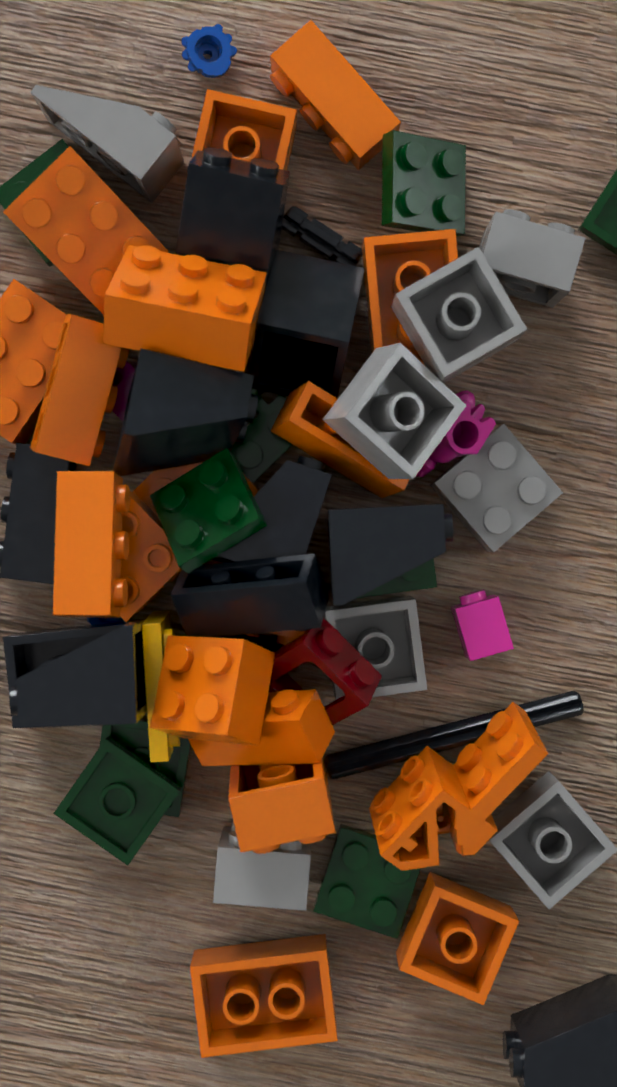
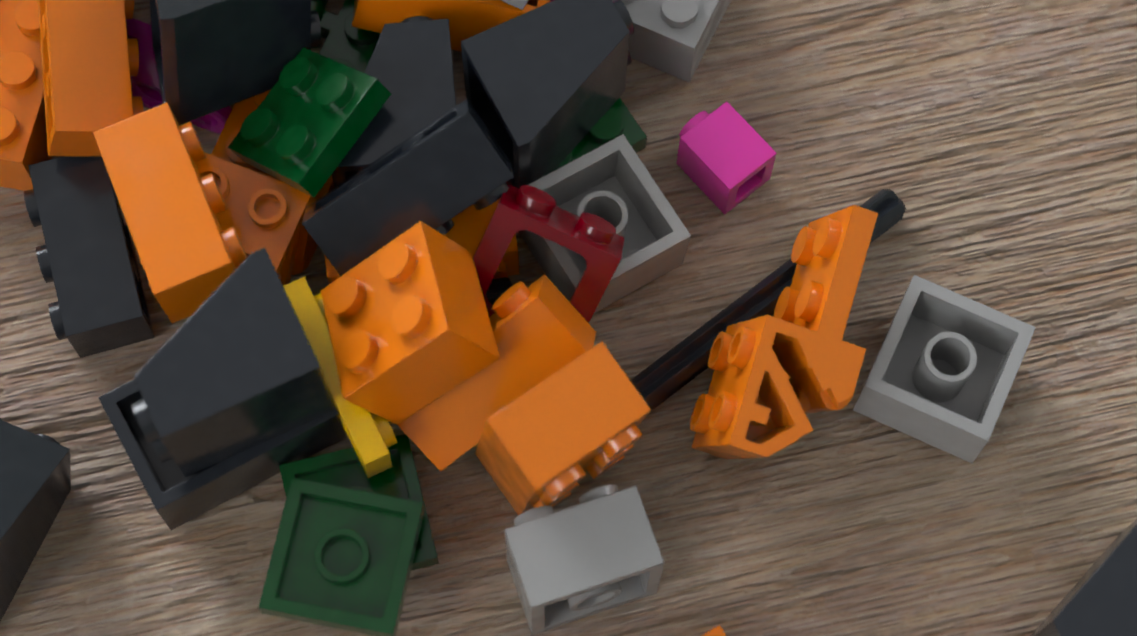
camera: 25 degrees left, 20 degrees down
(363, 885) = (738, 543): dark green plate -> none
(456, 938) = (890, 548): orange brick -> none

